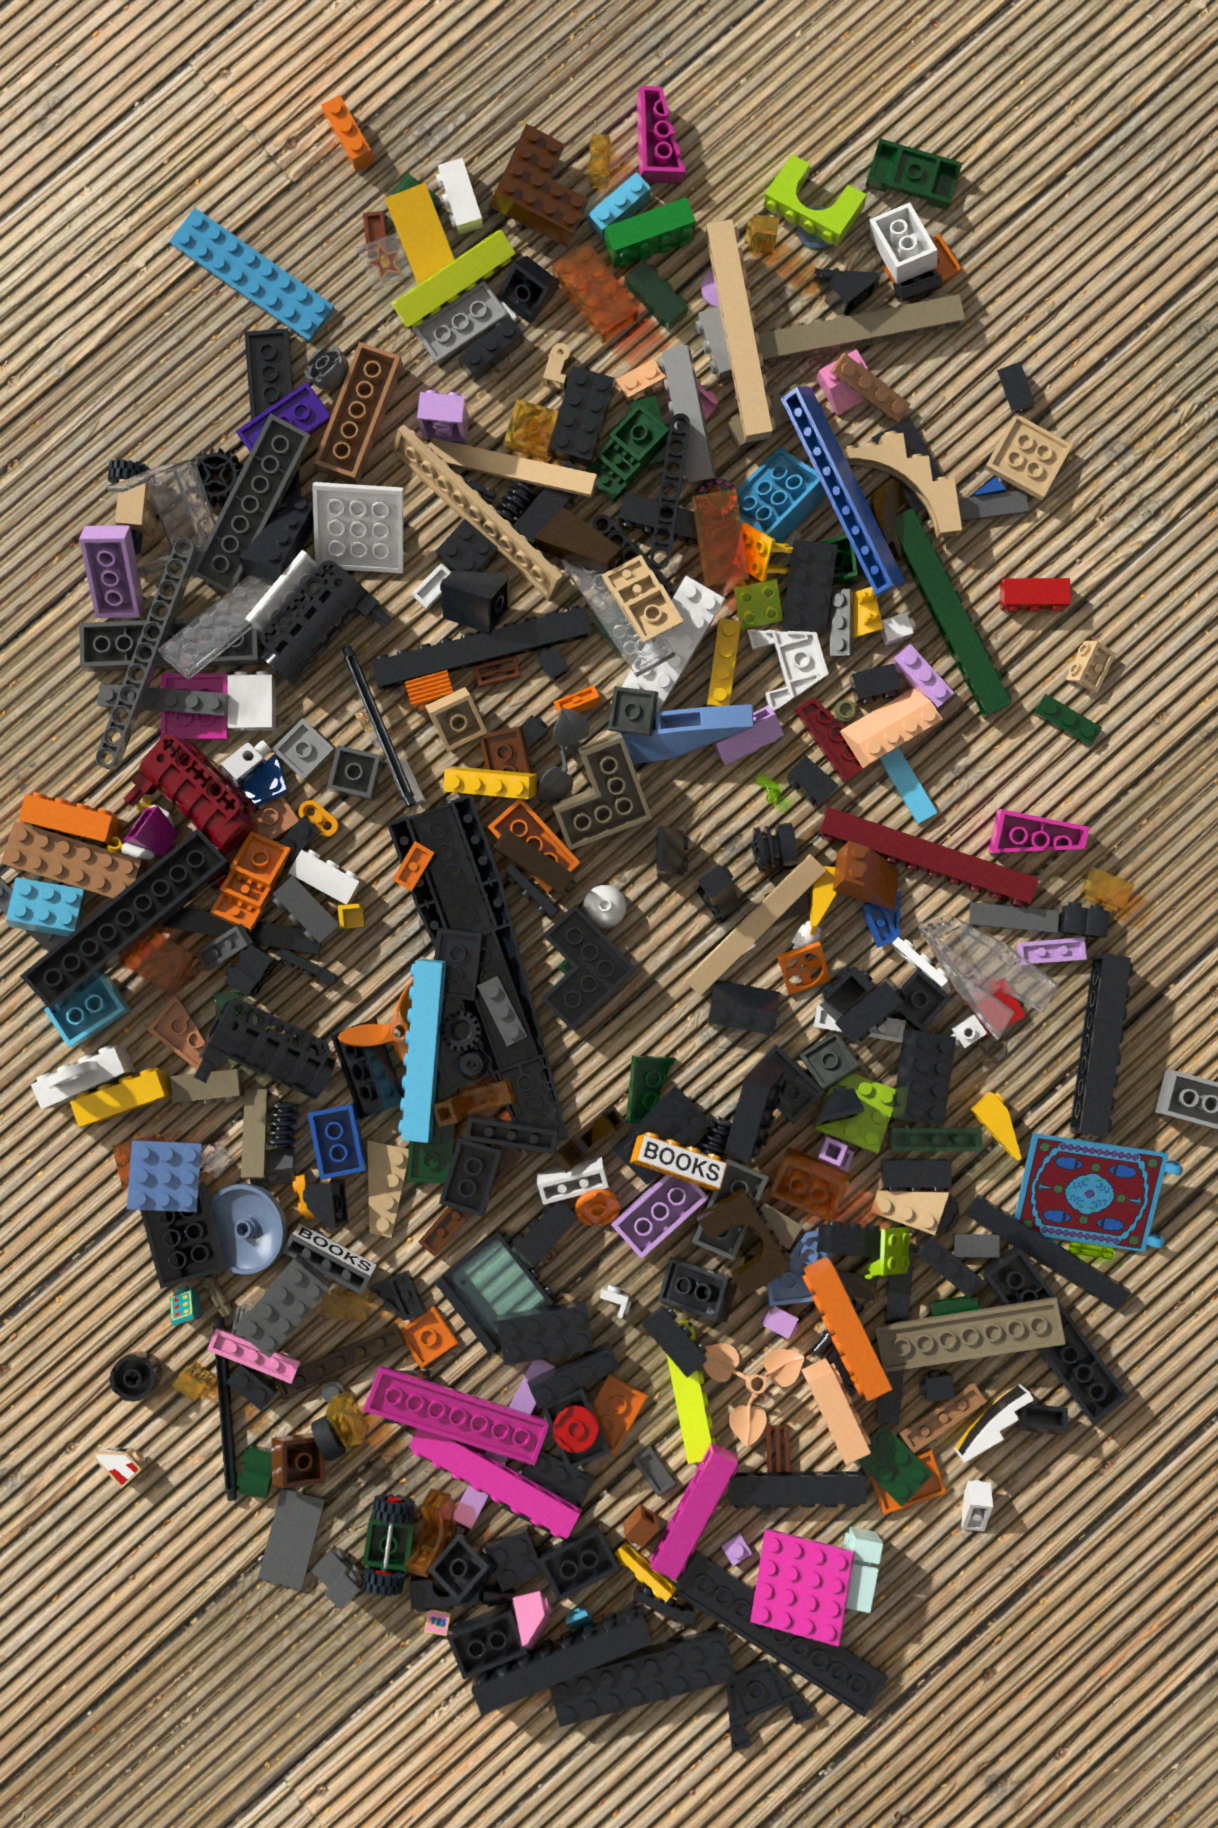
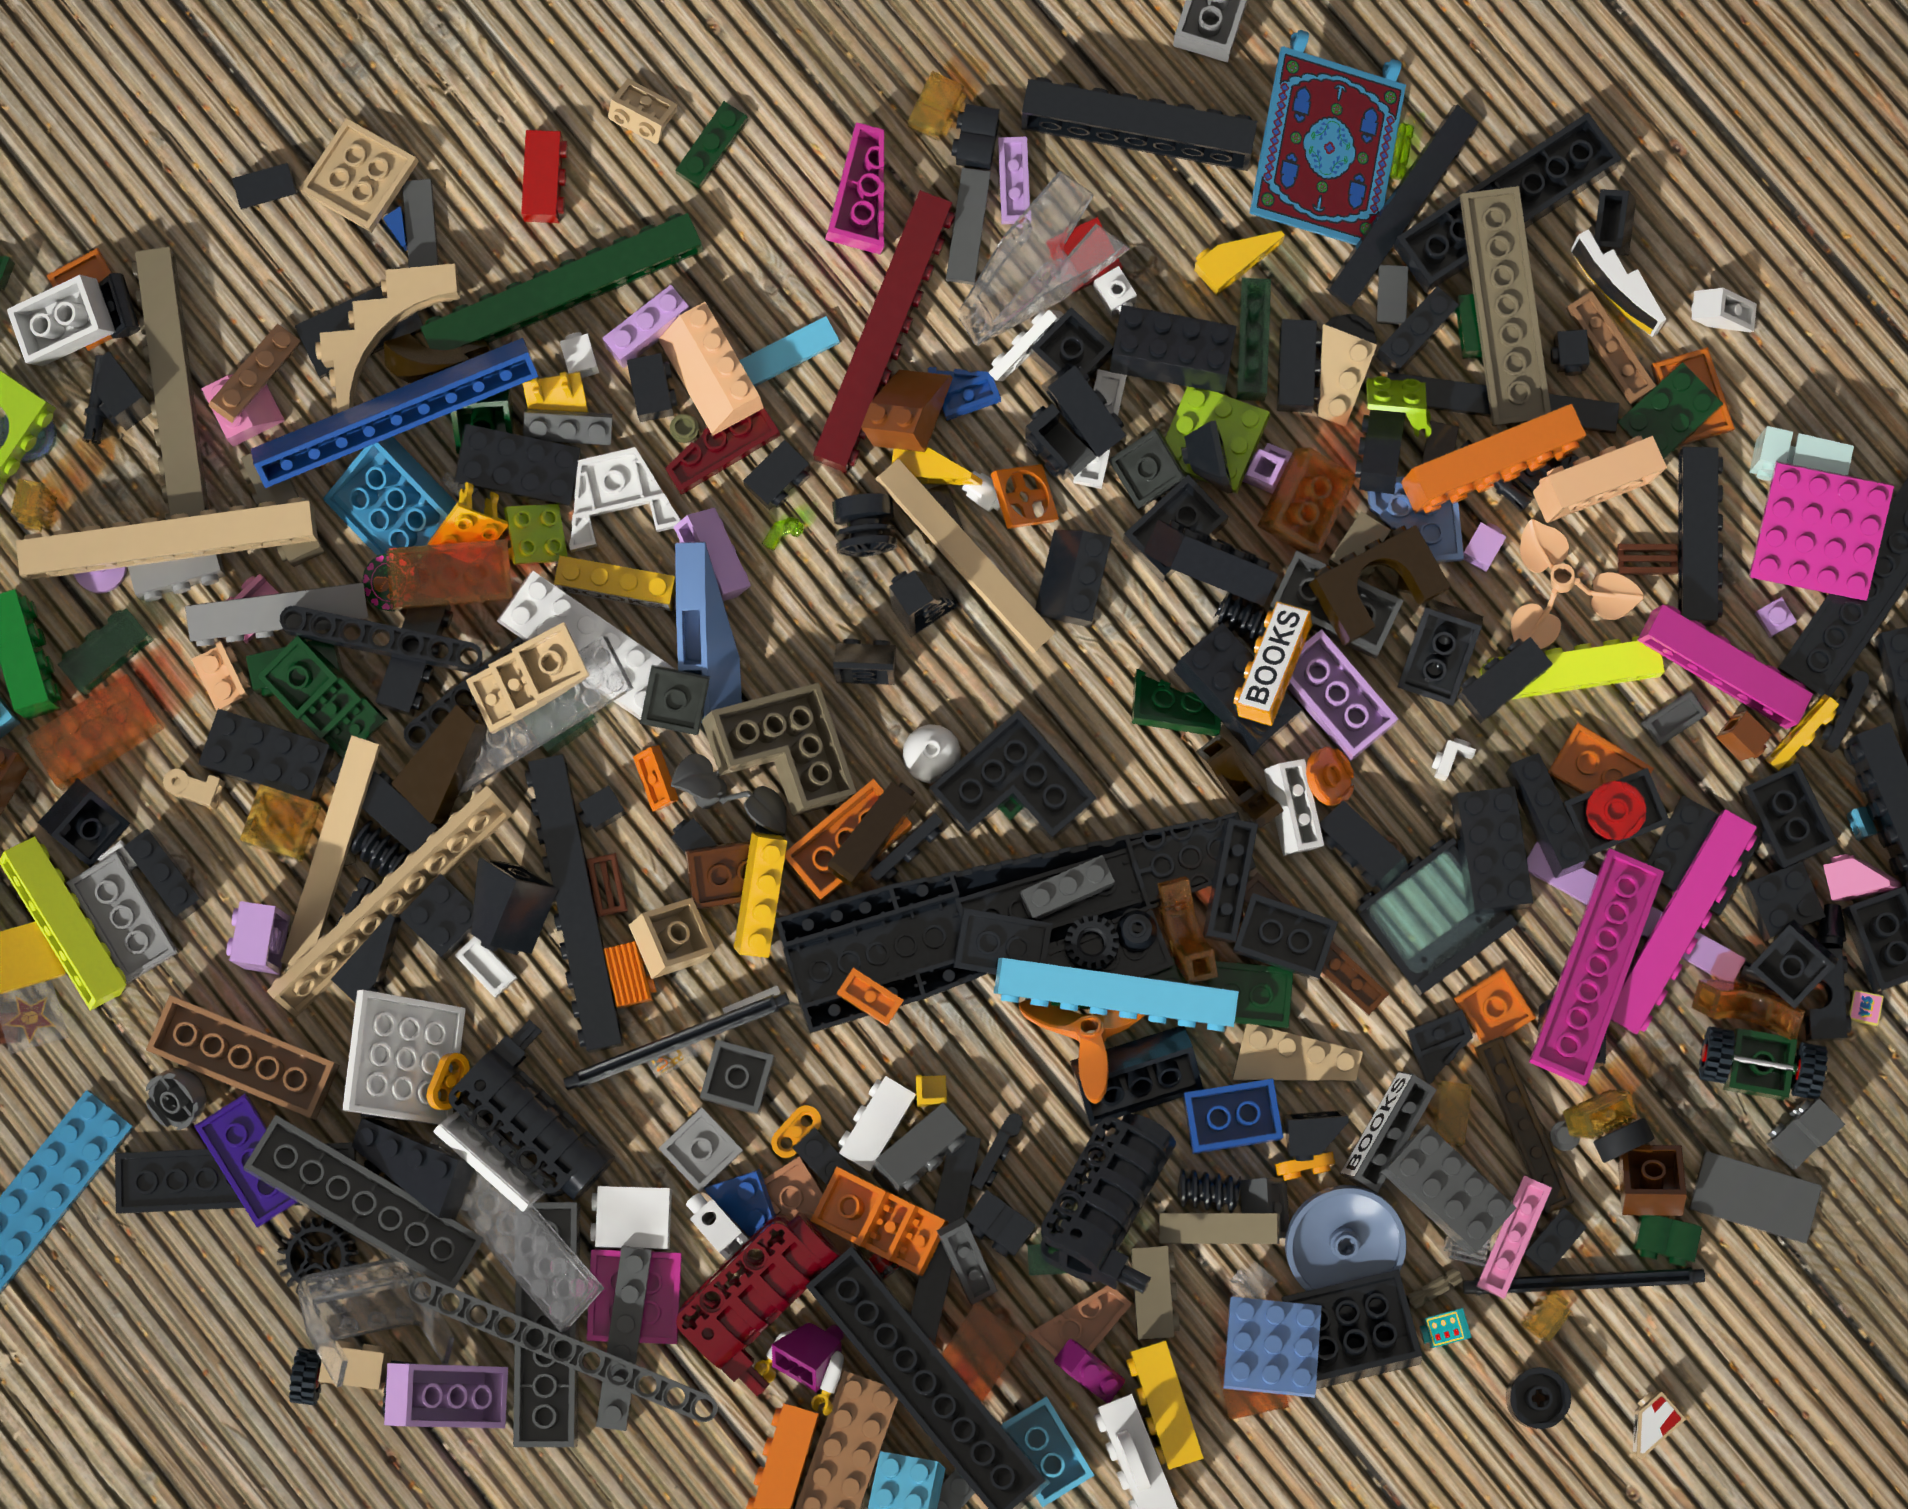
camera: 85 degrees left, 5 degrees down
(145, 1040) = (1089, 1370): none -> magenta brick
(346, 560) = (445, 1081): none -> light orange plate
(431, 501) = (369, 963): none -> black slope

